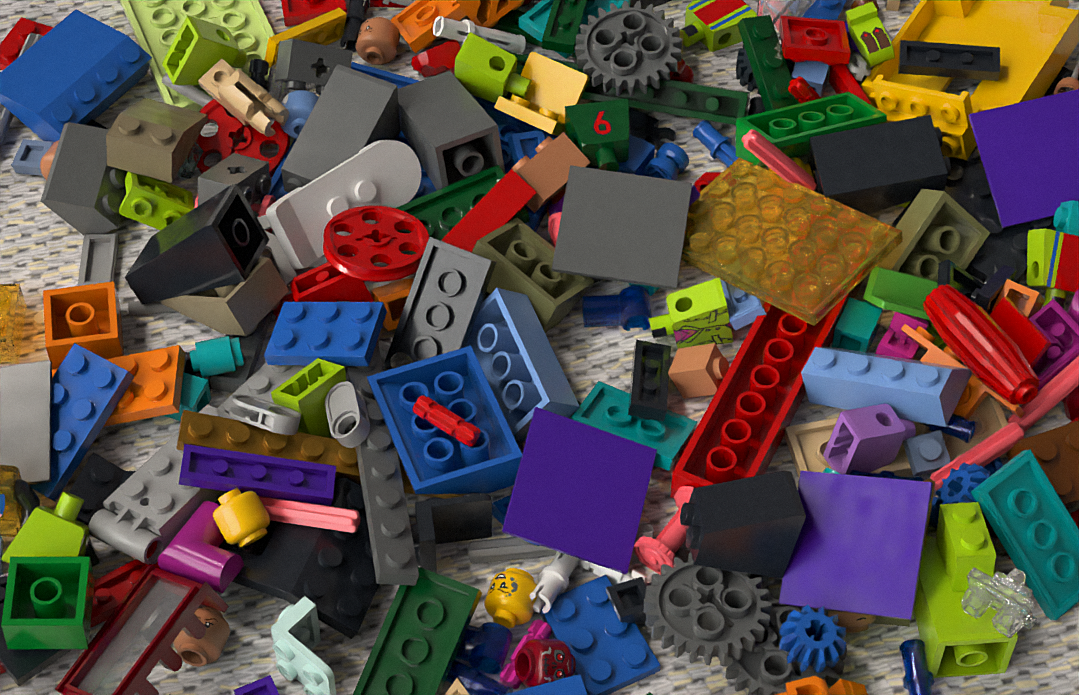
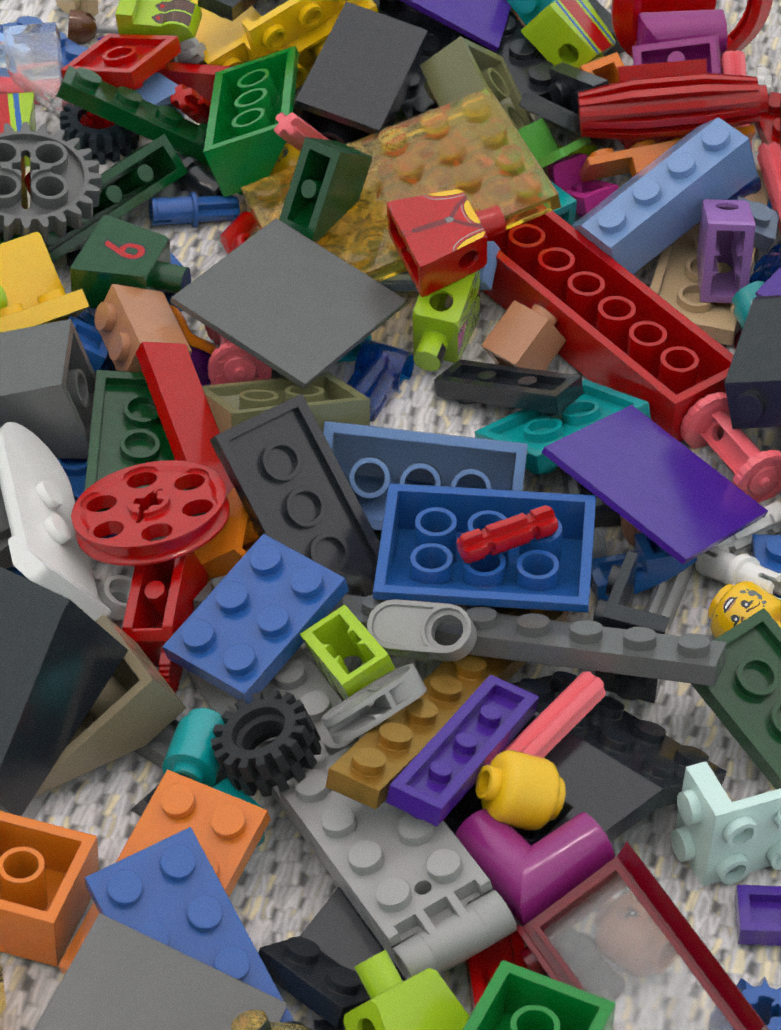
camera: 65 degrees left, 10 degrees down
(220, 378) = (275, 763): none -> black tyre
(668, 163) = (190, 251): blue wheel -> none
(716, 272) = (441, 237): none -> red torso
(737, 191) = (324, 186): none -> dark green slope

